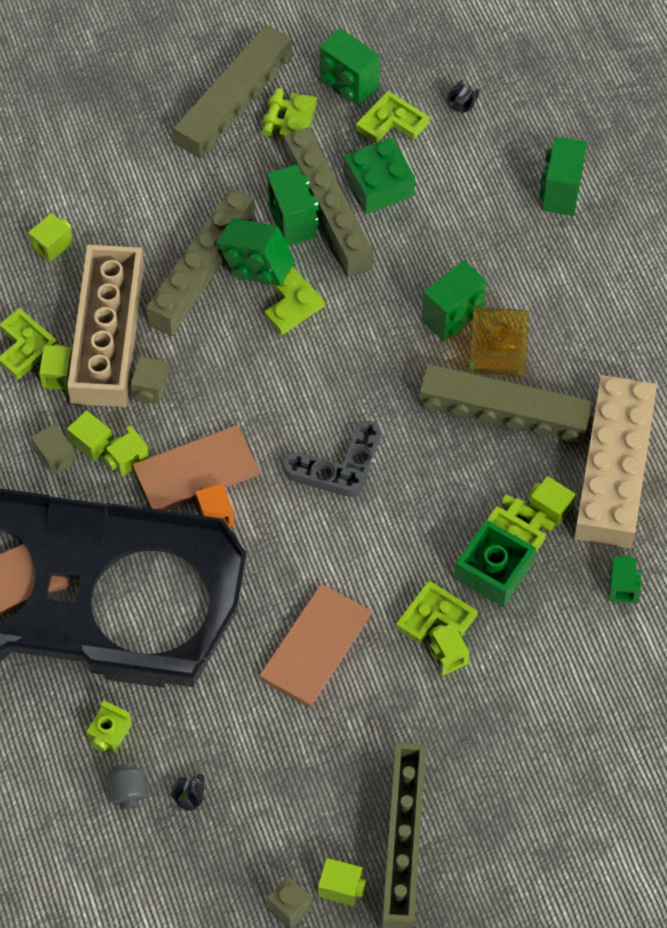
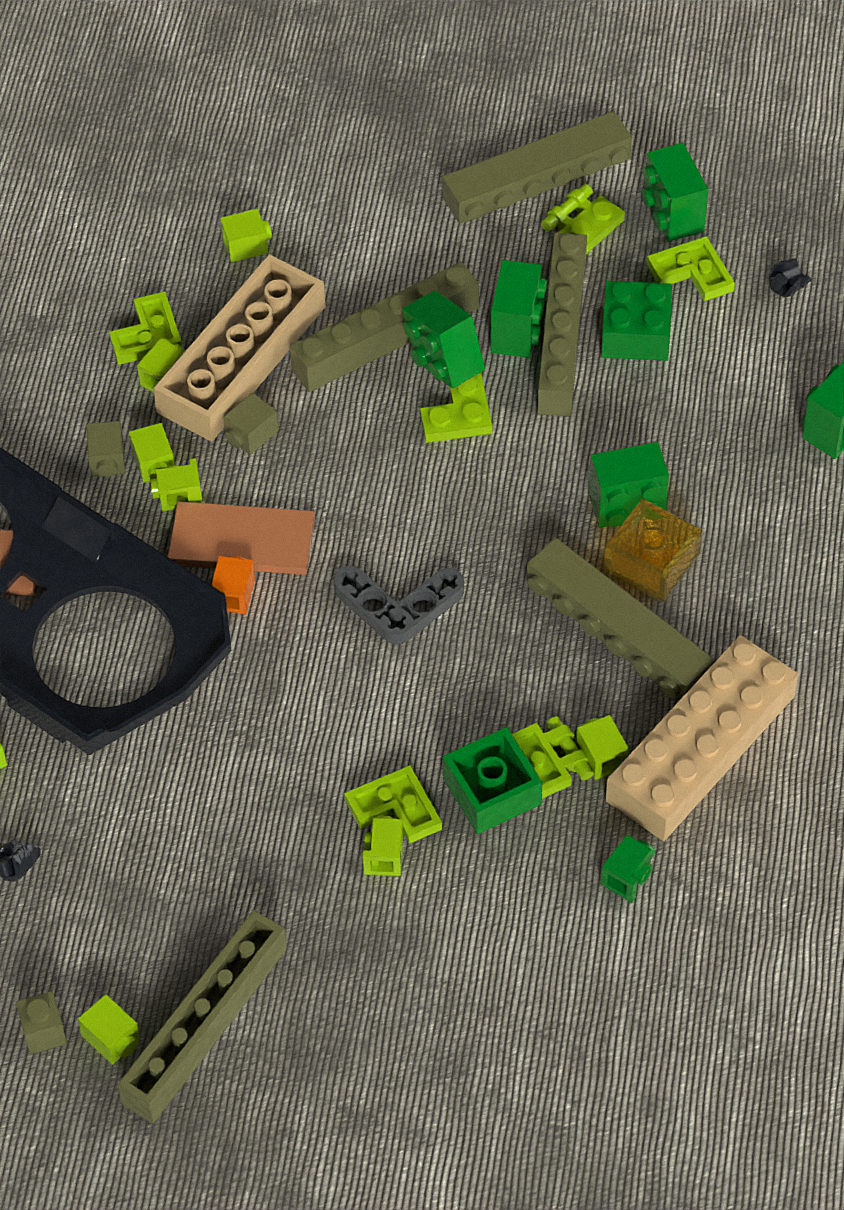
camera: 30 degrees right, 5 degrees down
(315, 645) = (247, 776): nougat tile -> none

